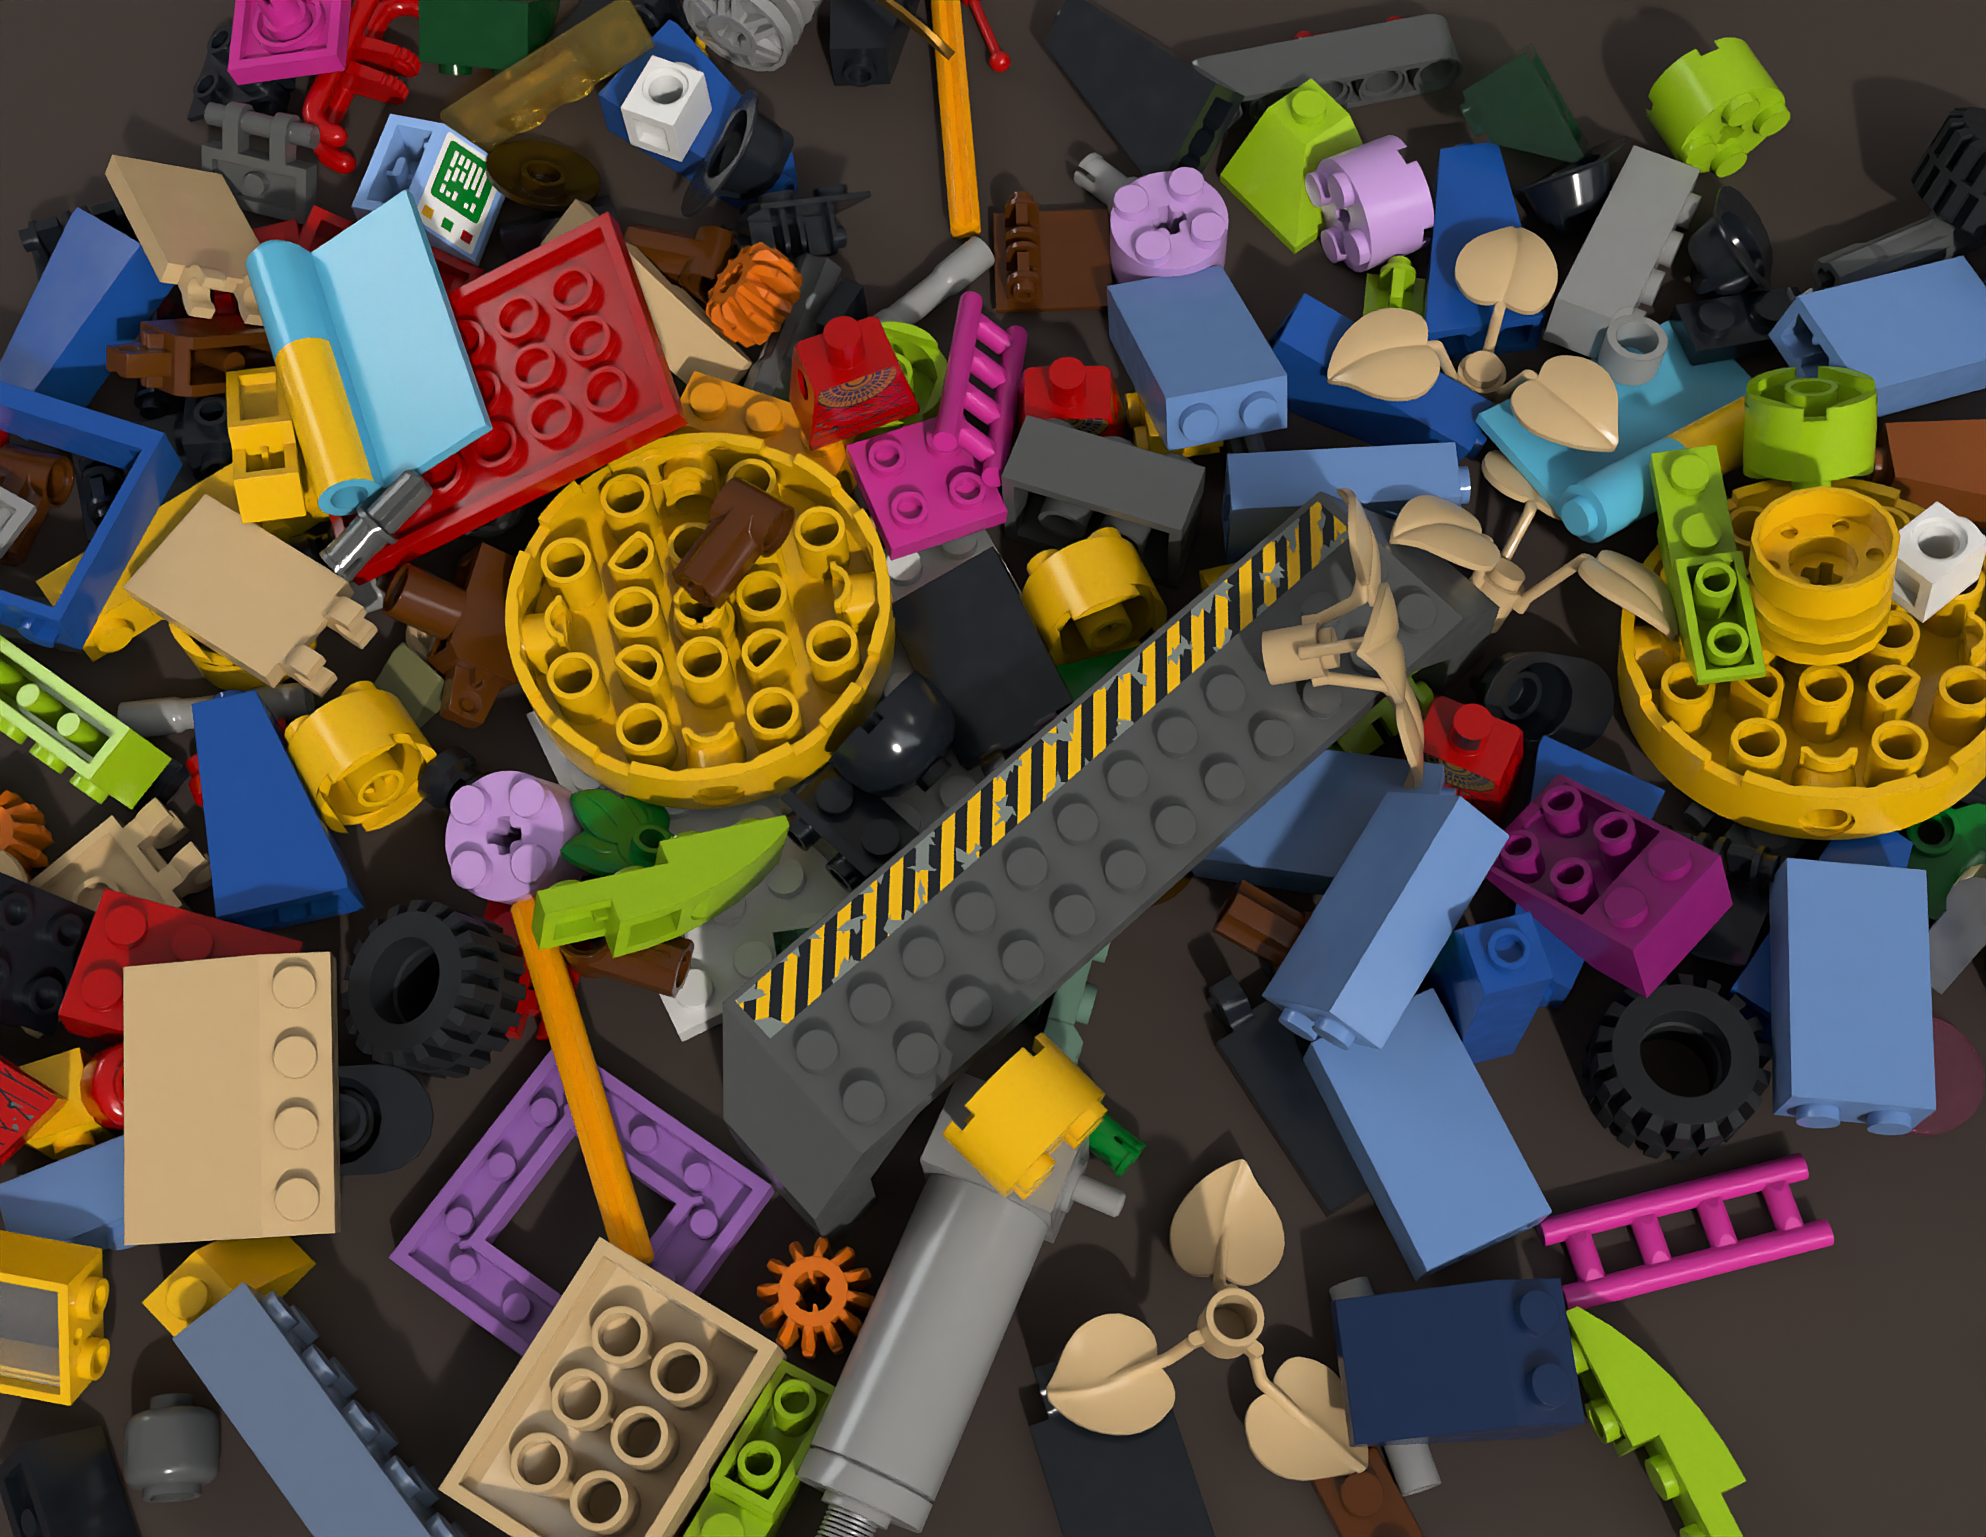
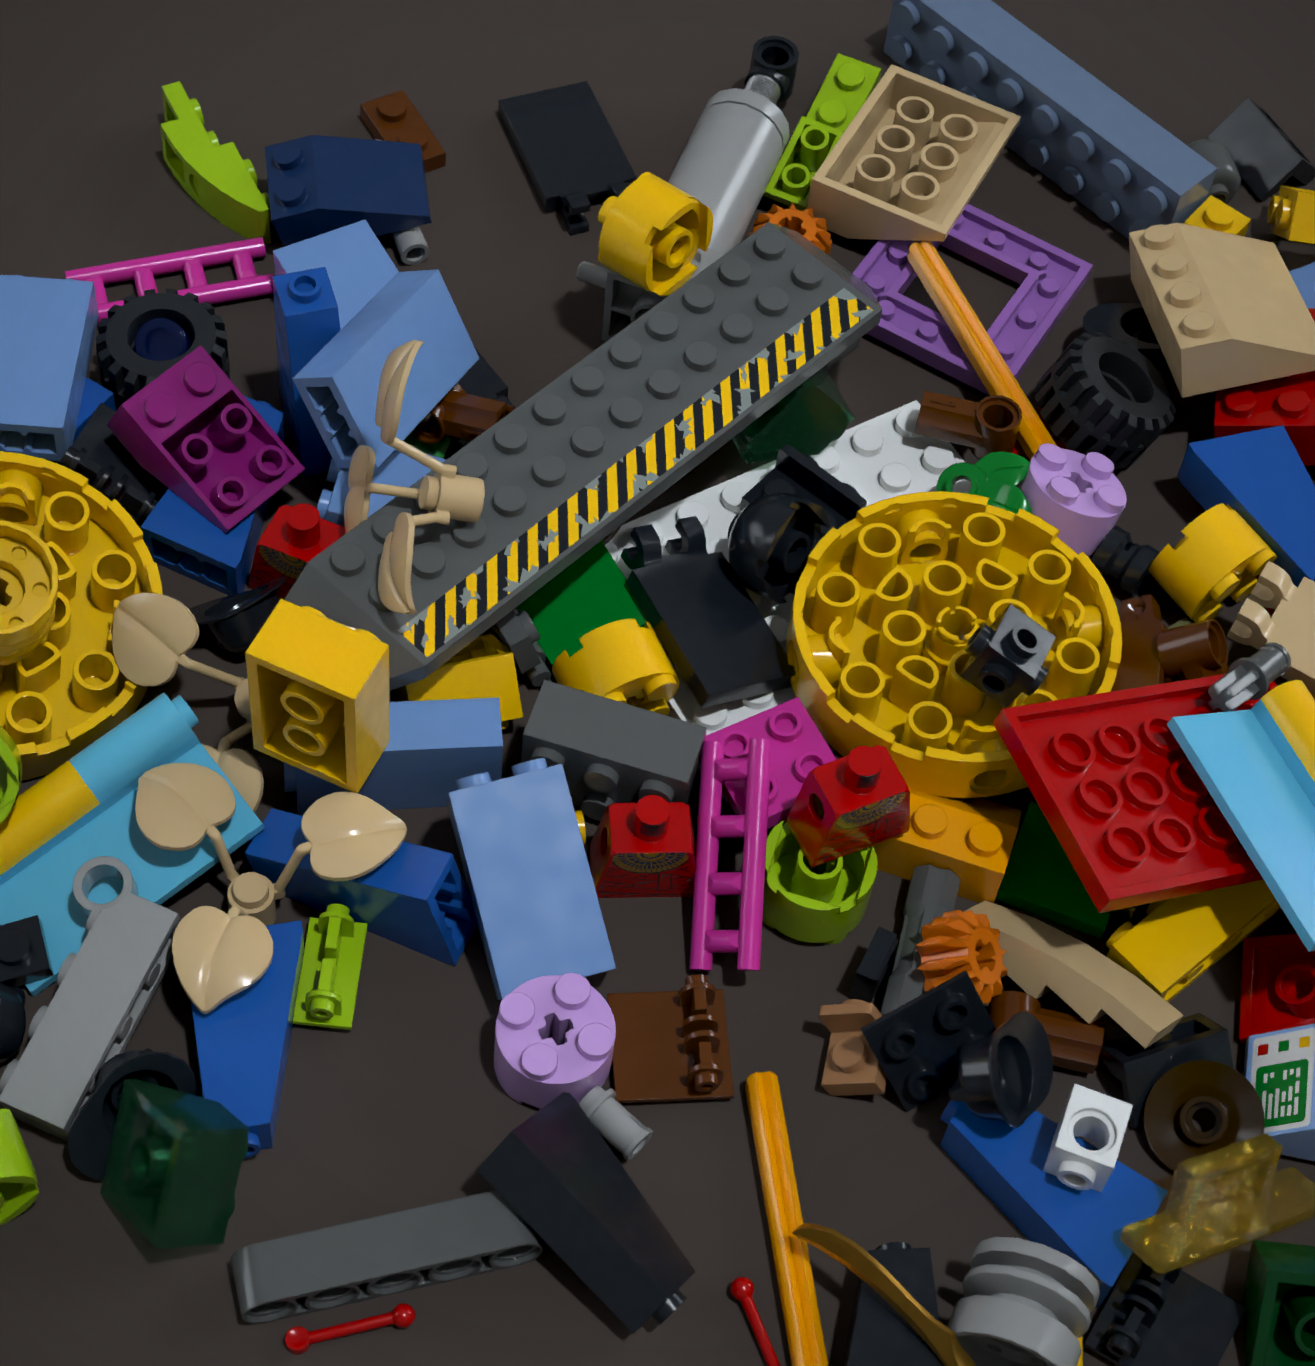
camera: 165 degrees right, 10 degrees down
(655, 505) = (1008, 656): none -> black brick
(688, 886) = (922, 437): lime slope -> none
(740, 529) = (932, 650): reddish brown piece -> none
(870, 241) = (850, 1062): none -> medium nougat bracket
(946, 280) = (775, 1021): light grey piece -> none
(1115, 1145) = (585, 331): green pin -> none
(1117, 1381) = (578, 186): tan plant -> none
(1278, 155) = (413, 1141): lime slope -> none
(1371, 204) = (348, 1059): lavender brick -> none
(1437, 399) = (319, 695): none -> yellow brick
(1680, 1065) = (161, 340): none -> clear blue tile
(1704, 567) = (86, 640): lime slope -> none

